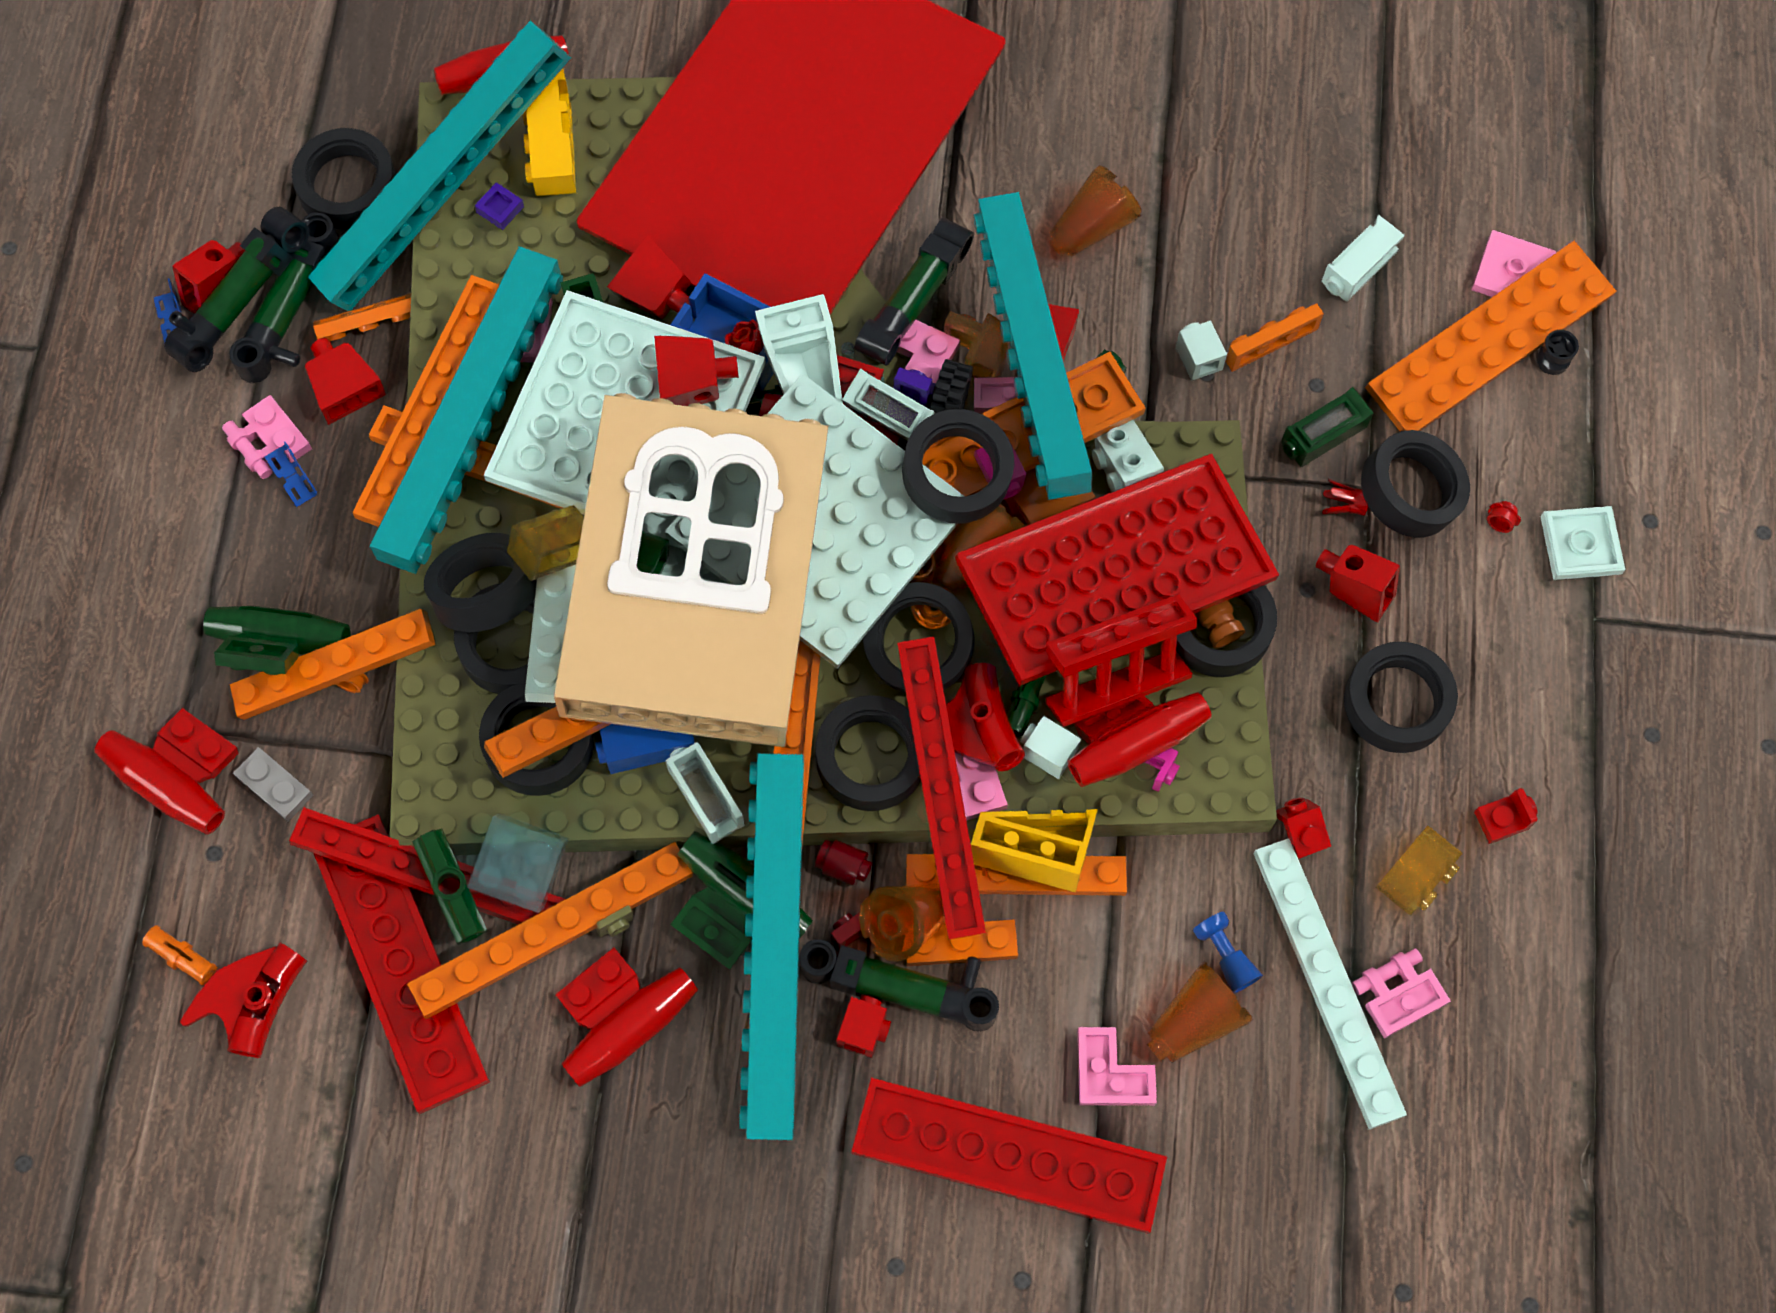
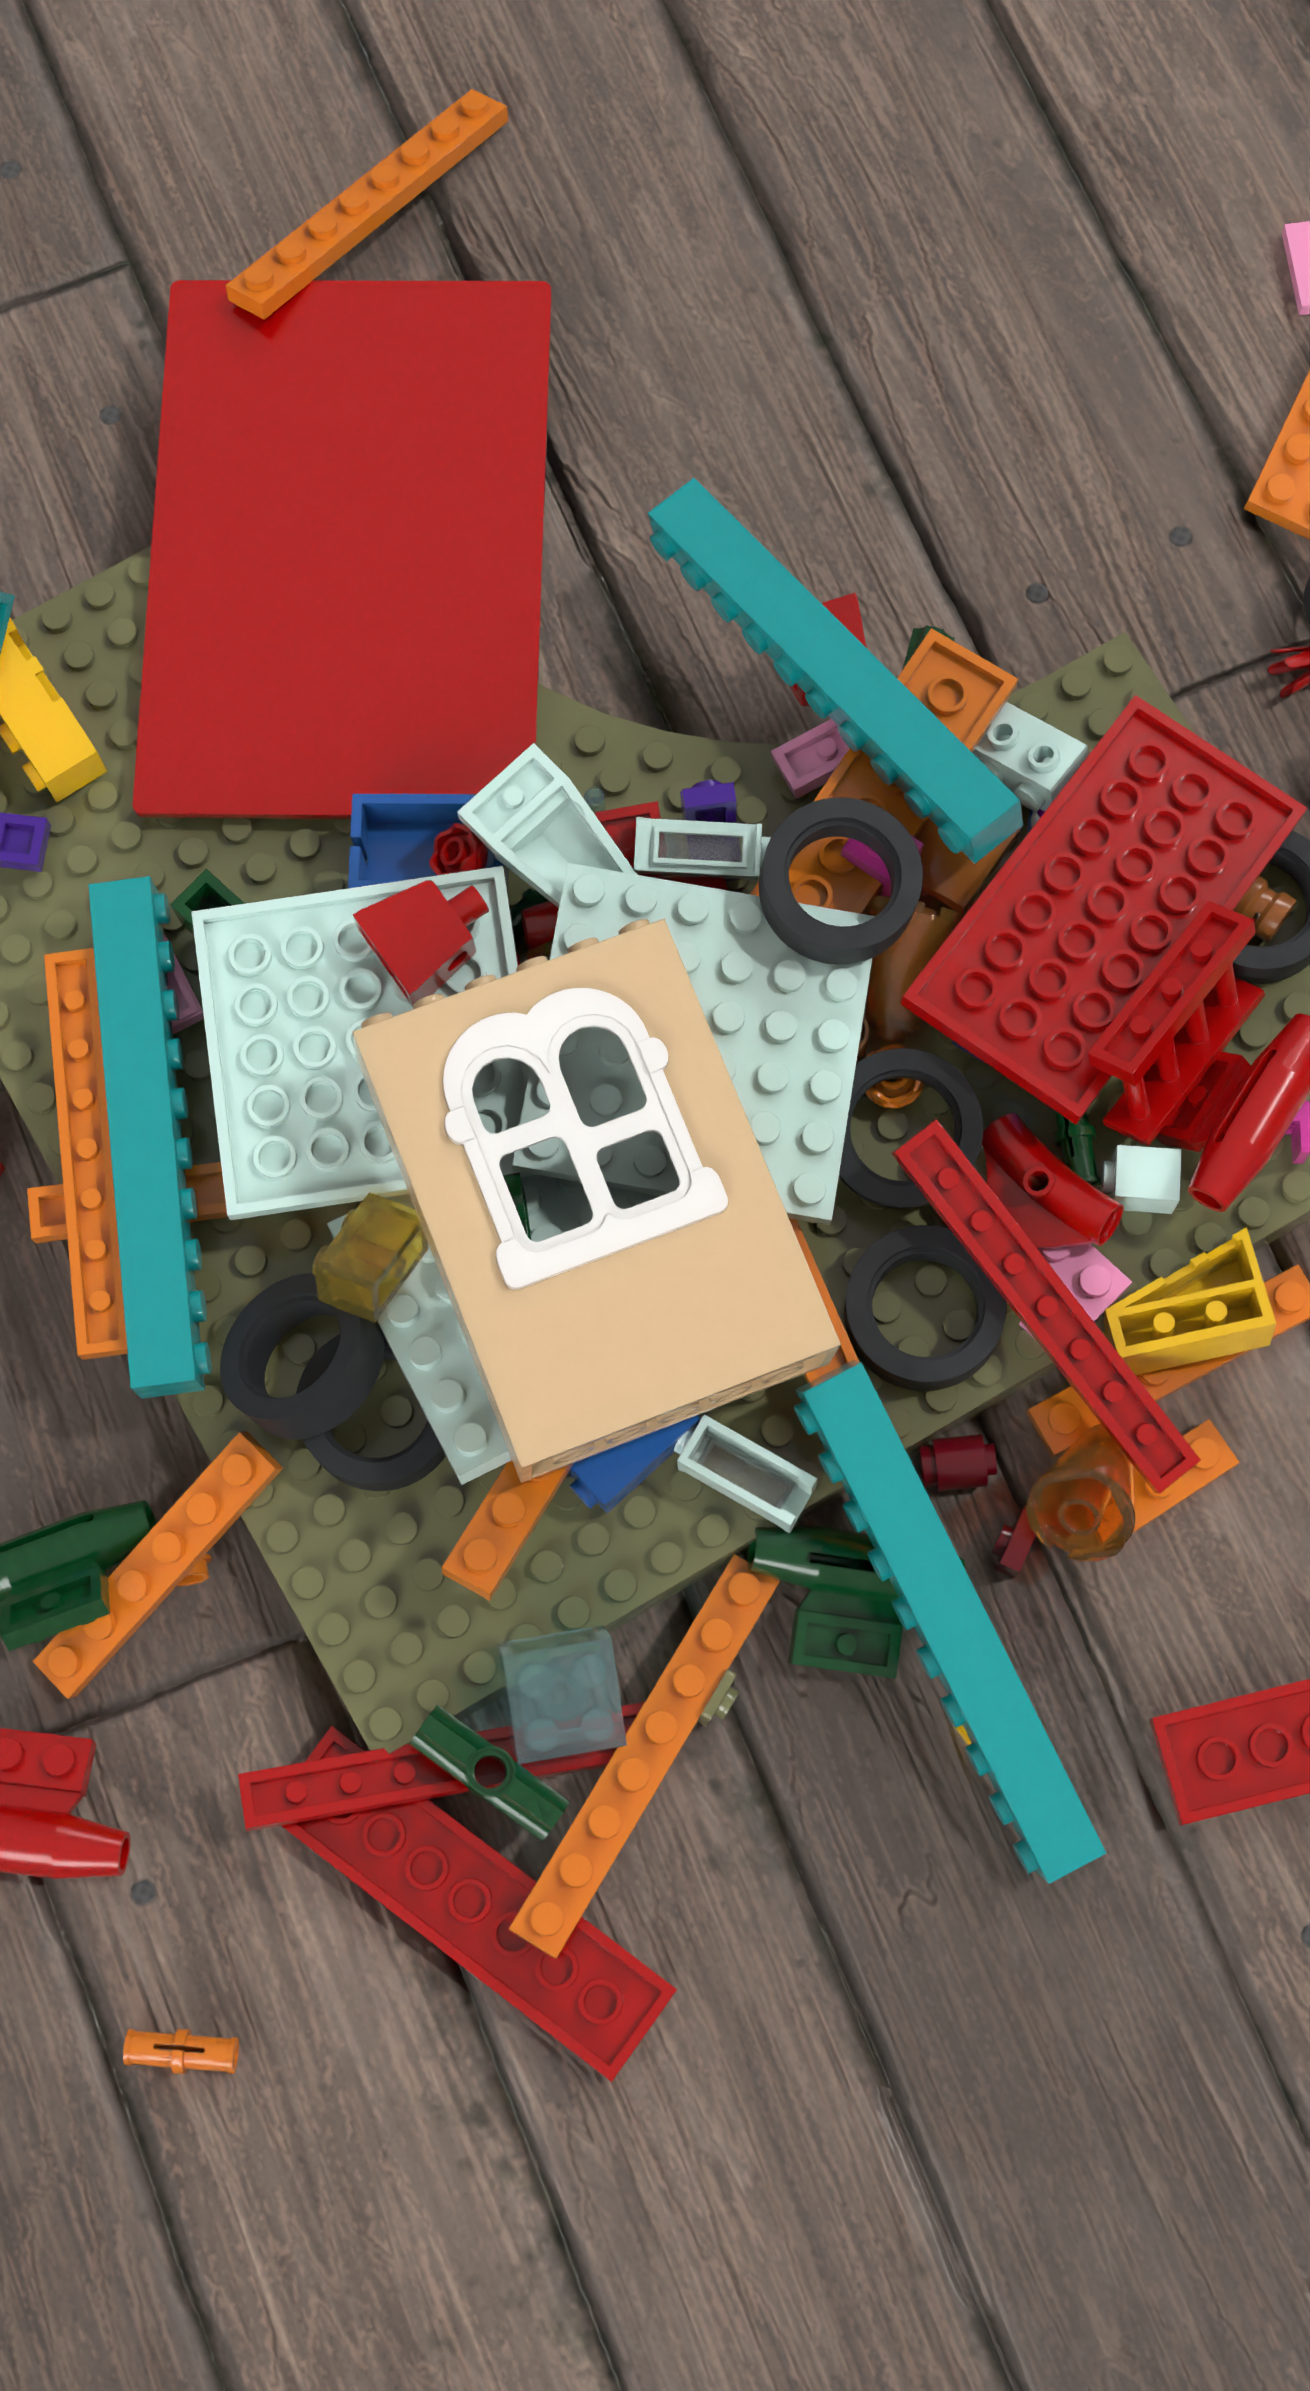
camera: 20 degrees left, 5 degrees up
(234, 994) = (281, 2061): red pin -> none
(273, 784) = (167, 1760): light grey plate -> none
(527, 781) = (522, 1576): black tyre -> none
(618, 1013) = (790, 1811): red plate -> none
(651, 281) = (285, 839): red torso -> none
(856, 973) = (1128, 1579): piece -> none
(863, 1026) = (1104, 1657): red brick -> none
(927, 349) = (678, 740): bright pink plate -> none
(934, 266) = (632, 678): black piece -> none
(952, 386) = (757, 784): black tyre -> none
(984, 340) = (759, 695): clear orange brick -> none
(1094, 213) = (785, 455): clear orange cone -> none
(1200, 350) = (1017, 564): light aqua brick -> none
(1273, 336) = (1096, 500): orange plate -> none
(1326, 428) = (1229, 585): dark green window -> none
(1362, 259) = (1148, 343): light aqua window -> none

